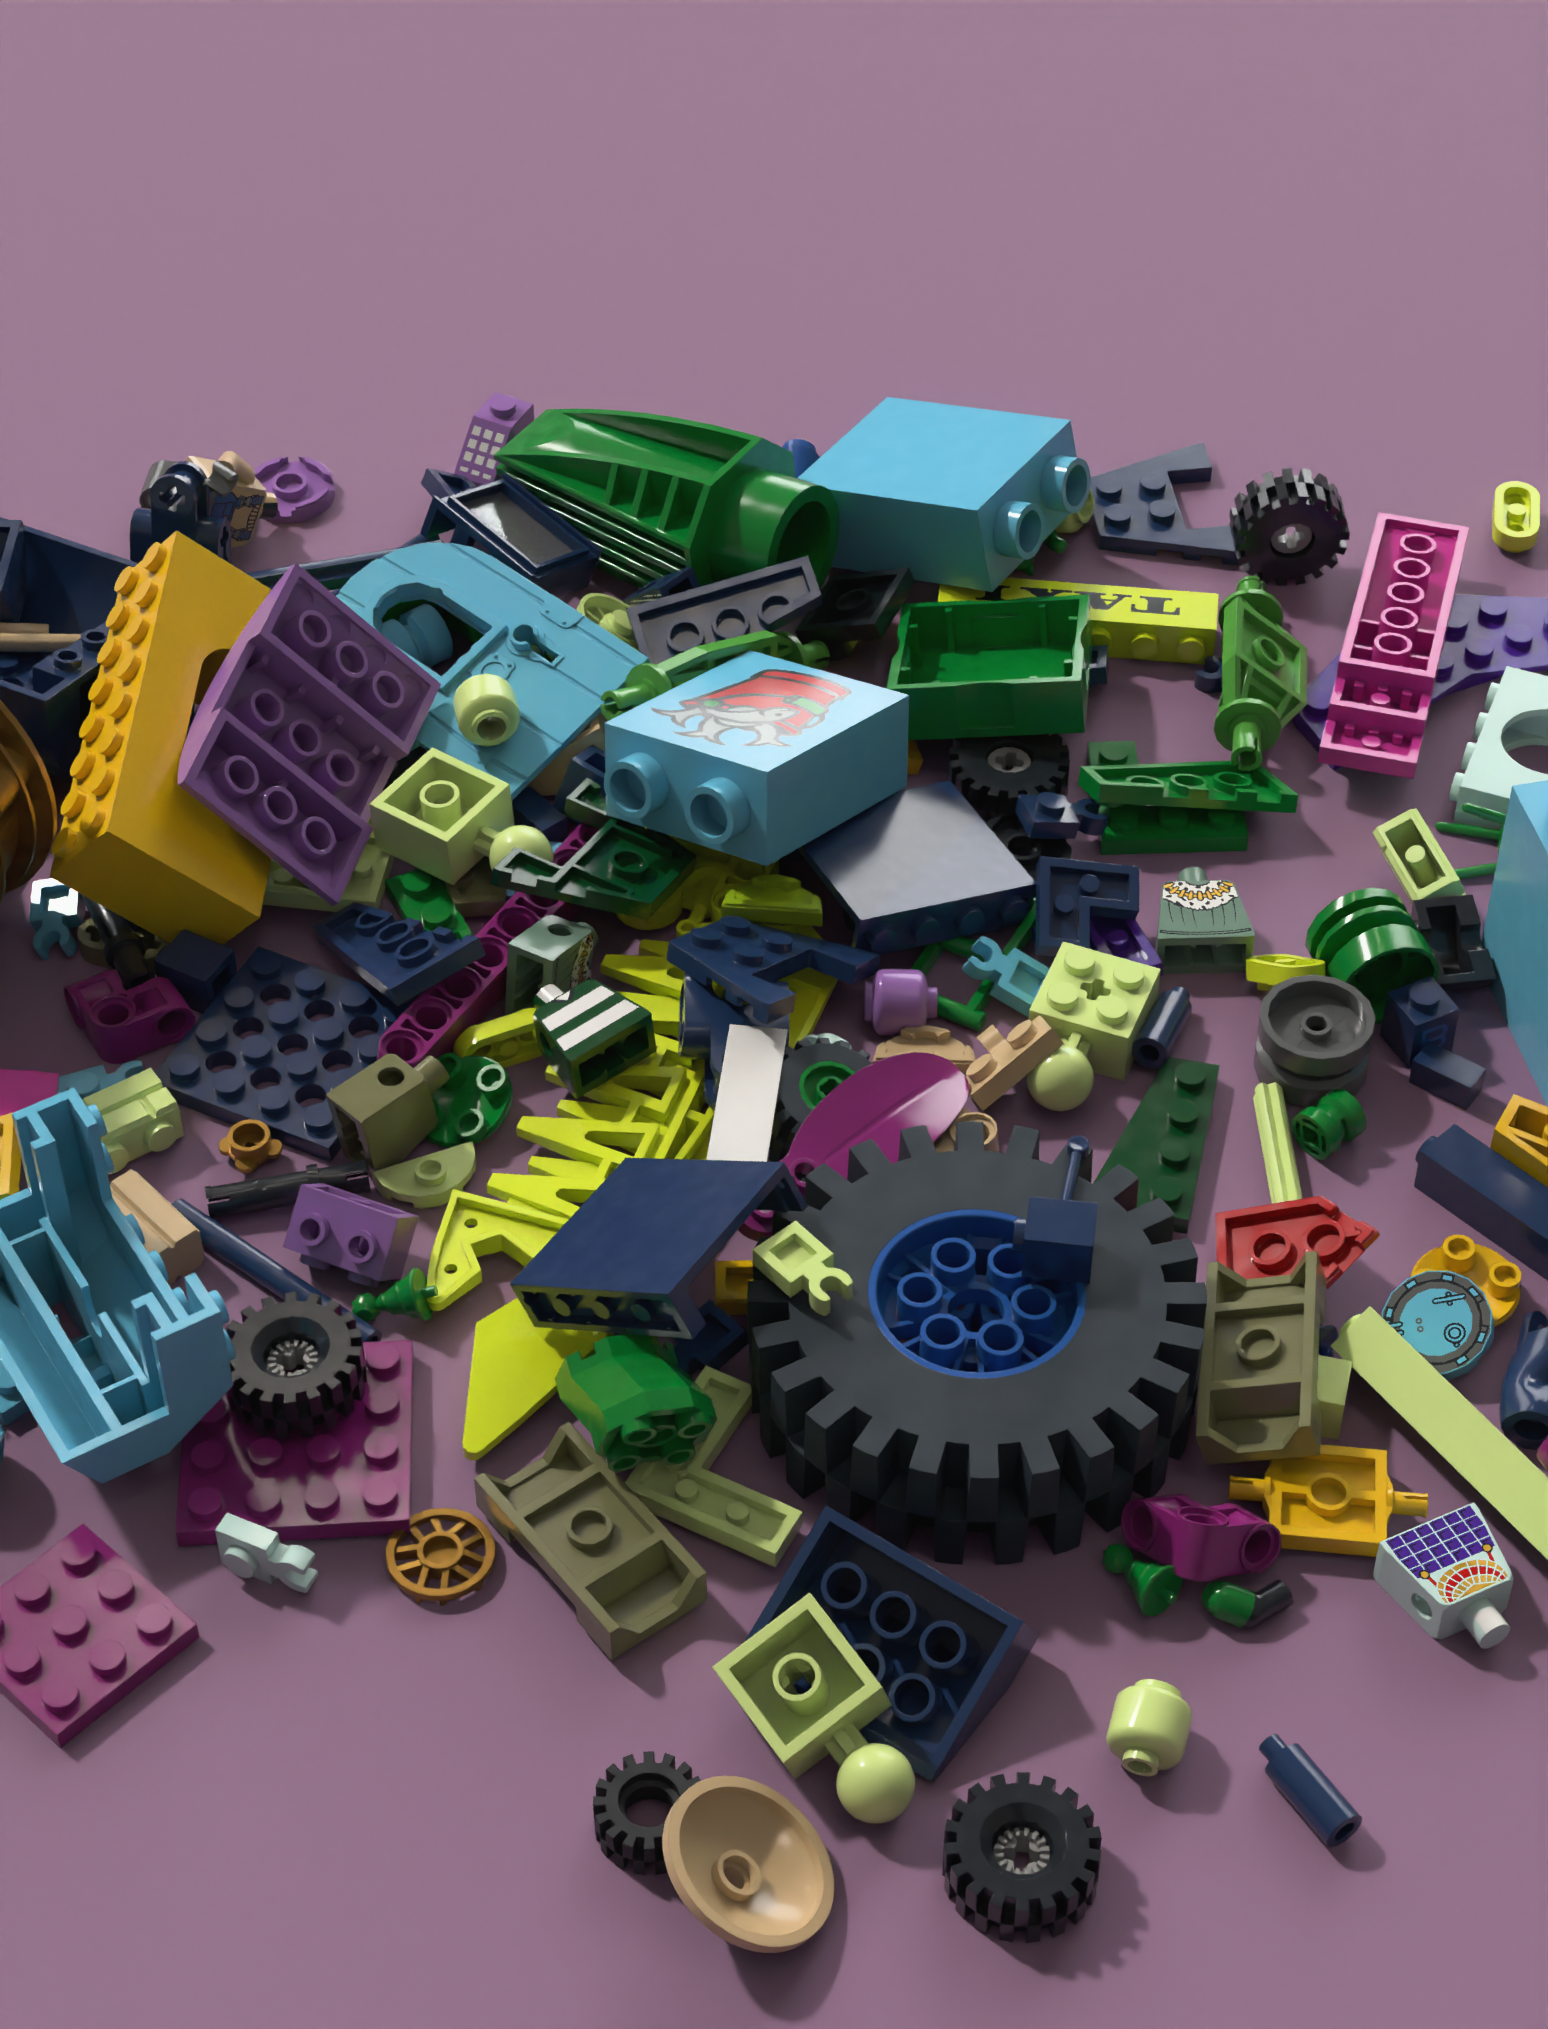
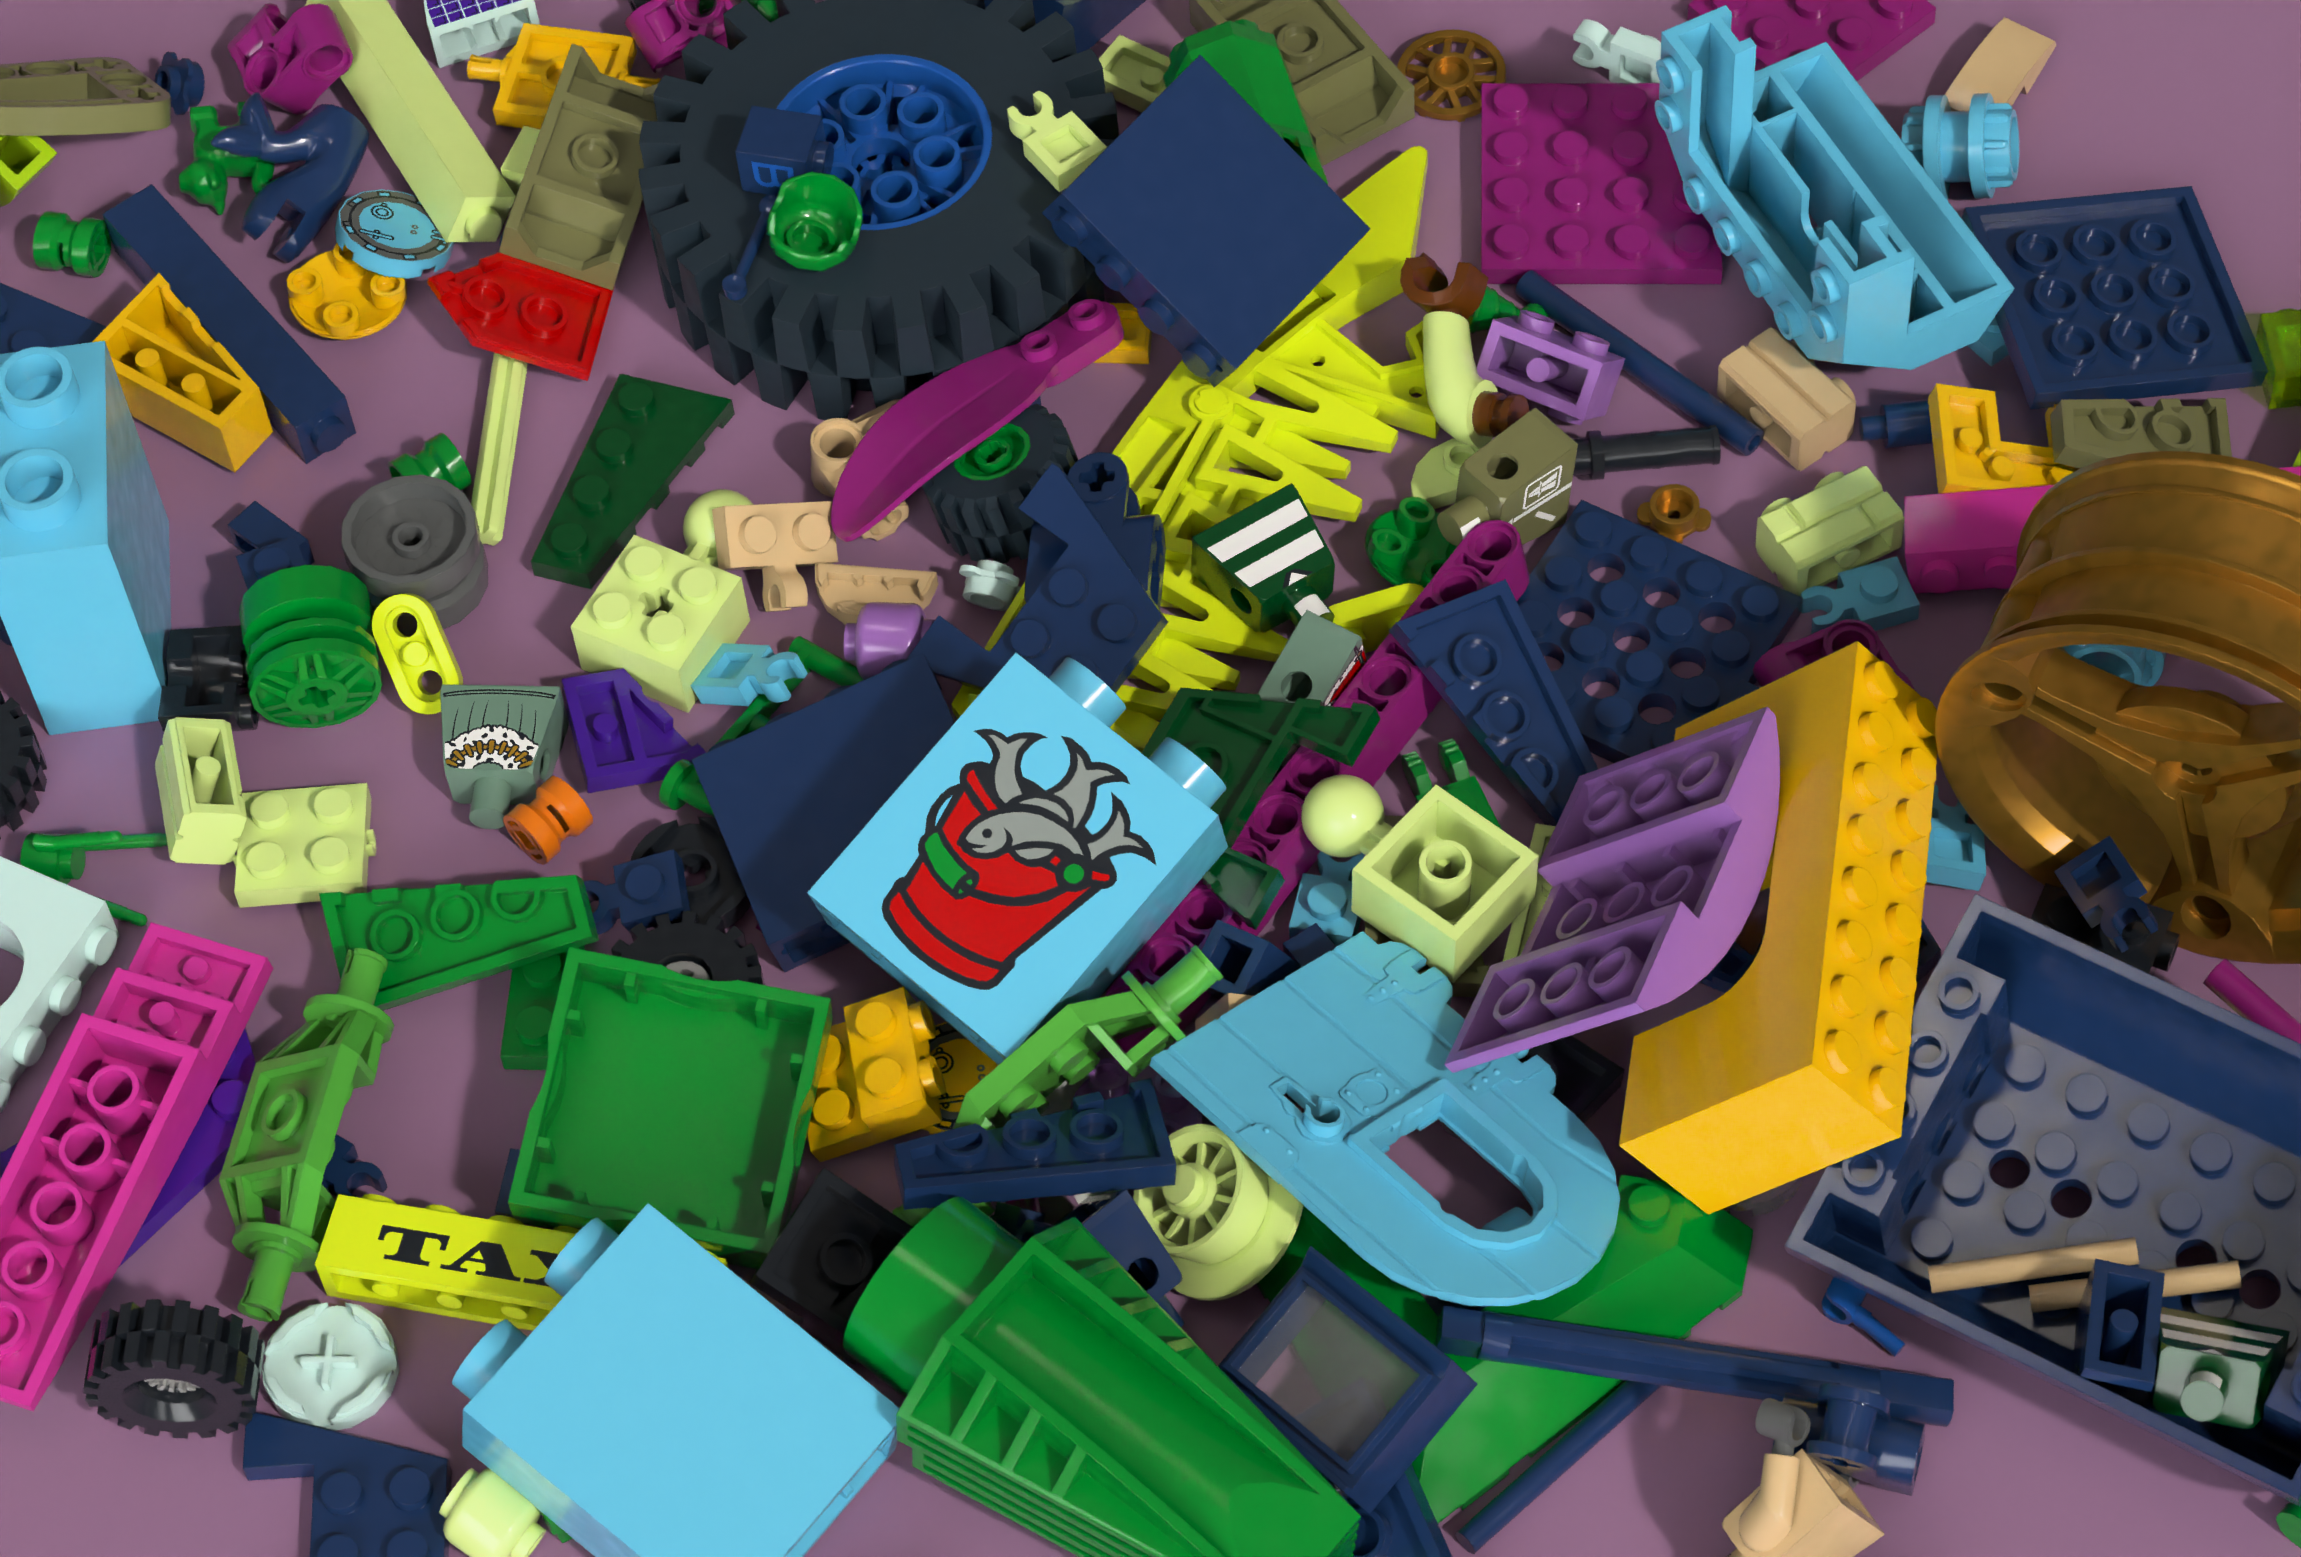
camera: 170 degrees left, 10 degrees up
(289, 1336) = (1598, 163): black bush -> none
(433, 1187) = (1458, 397): none -> piece
(486, 710) = (1380, 999): yellowish green head -> none
(747, 1094) = (1097, 406): white sticker -> none
(1012, 1170) = (814, 221): none -> green hair
(1072, 892) = (651, 744): dark blue plate -> none
(1155, 869) = (548, 820): none -> orange wheel
(1162, 1028) = (558, 631): dark blue cylinder -> none
(1197, 574) = (330, 1366): none -> light aqua tile
(1328, 862) = (304, 844): none -> yellowish green plate

